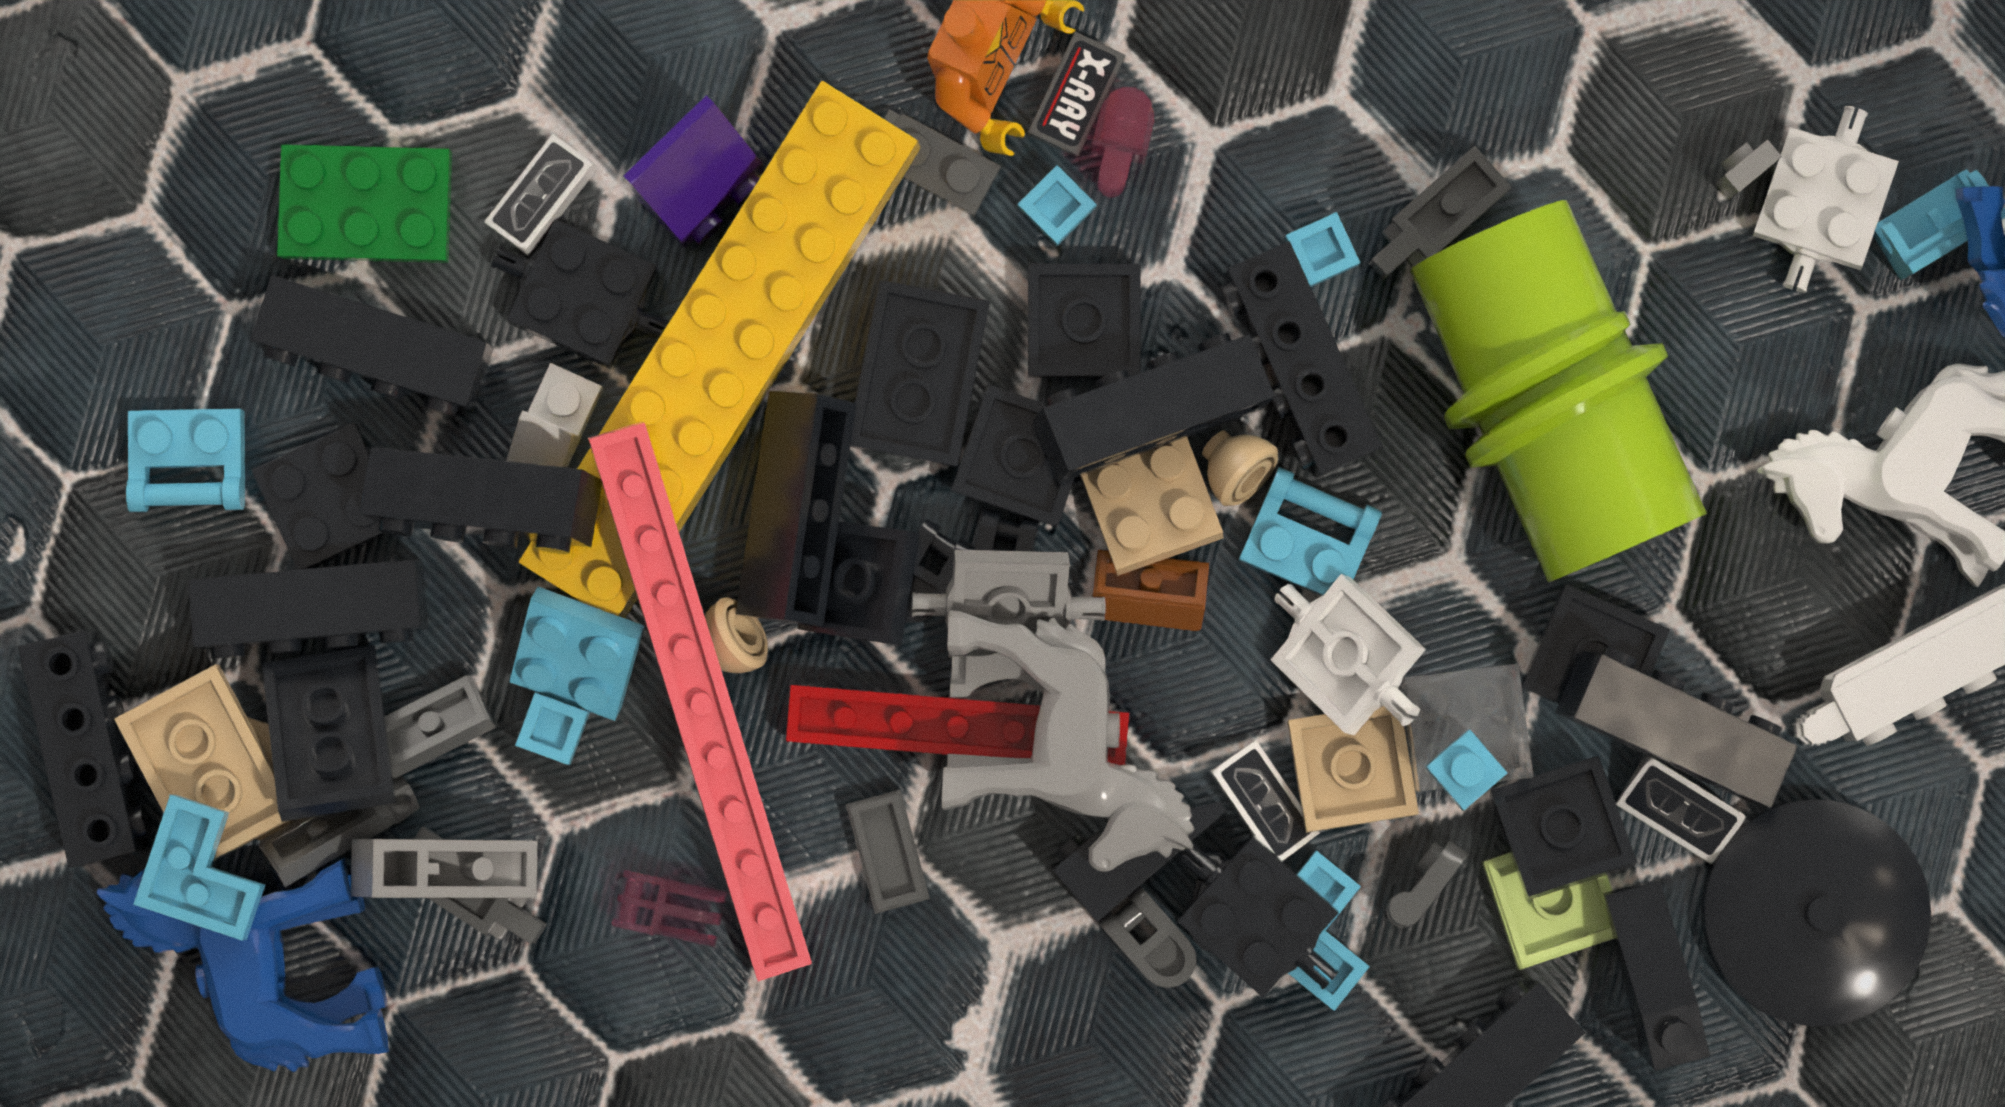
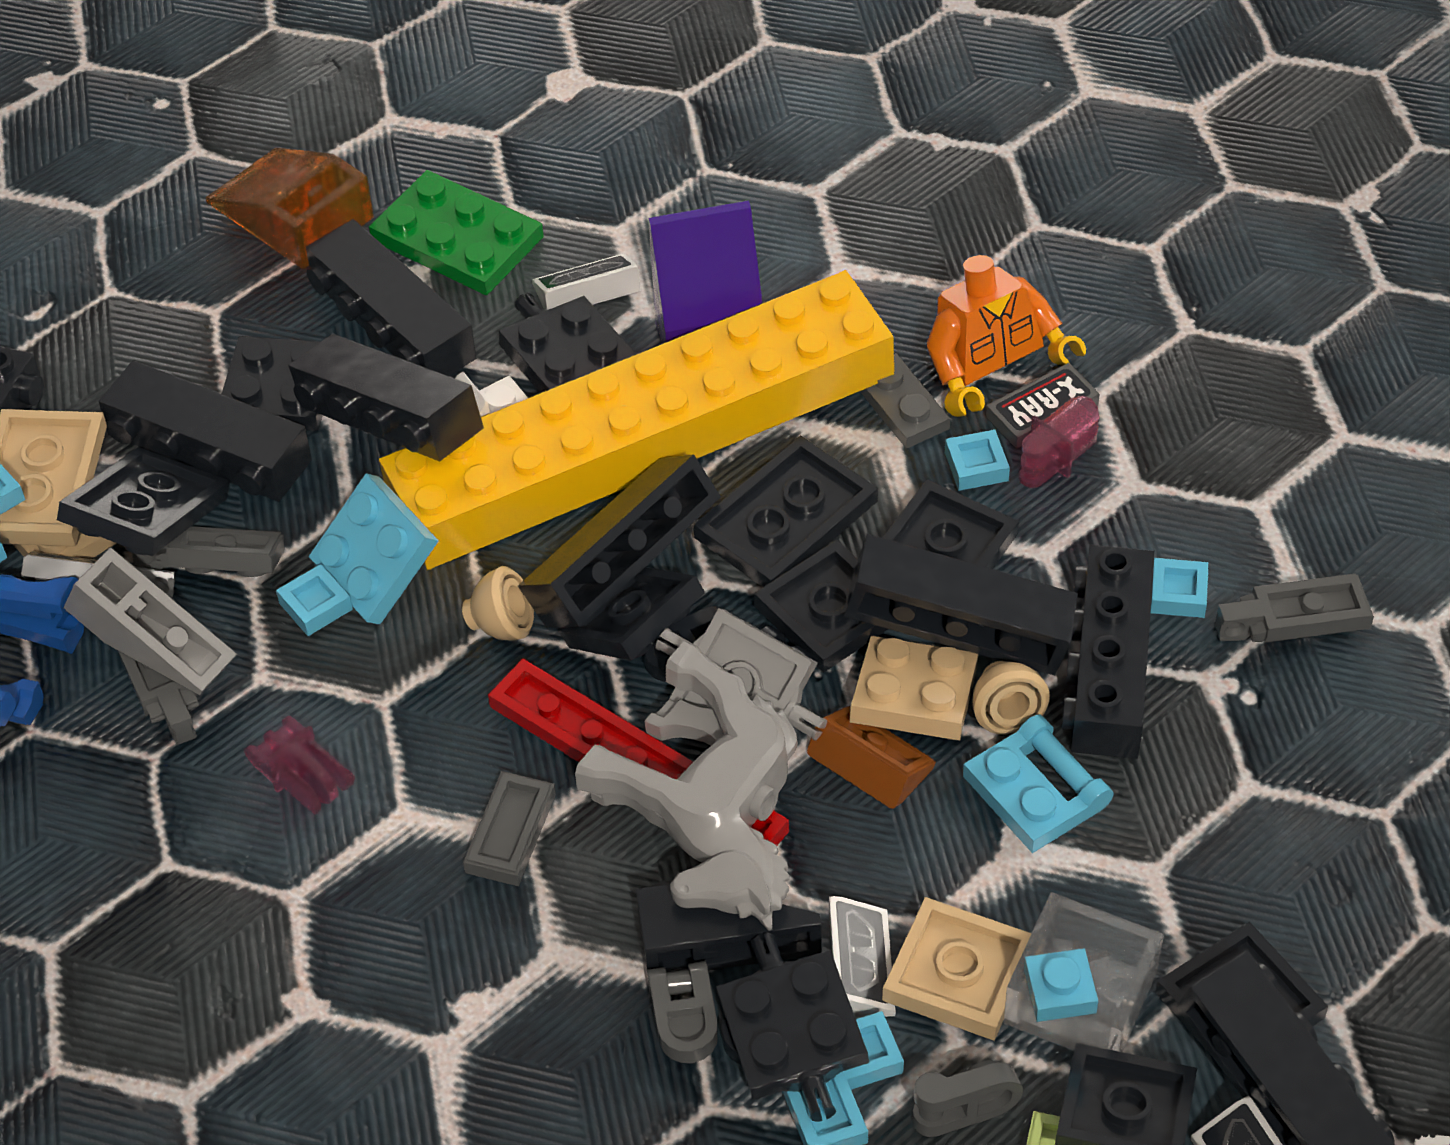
camera: 35 degrees right, 35 degrees down
(174, 271) = (294, 199): none -> clear orange slope
(186, 441) = (206, 302): medium azure plate -> none
(699, 700) = (435, 625): coral plate -> none
(1347, 654) = (1011, 865): white plate -> none
(1556, 390) = (1325, 751): lime piece -> none

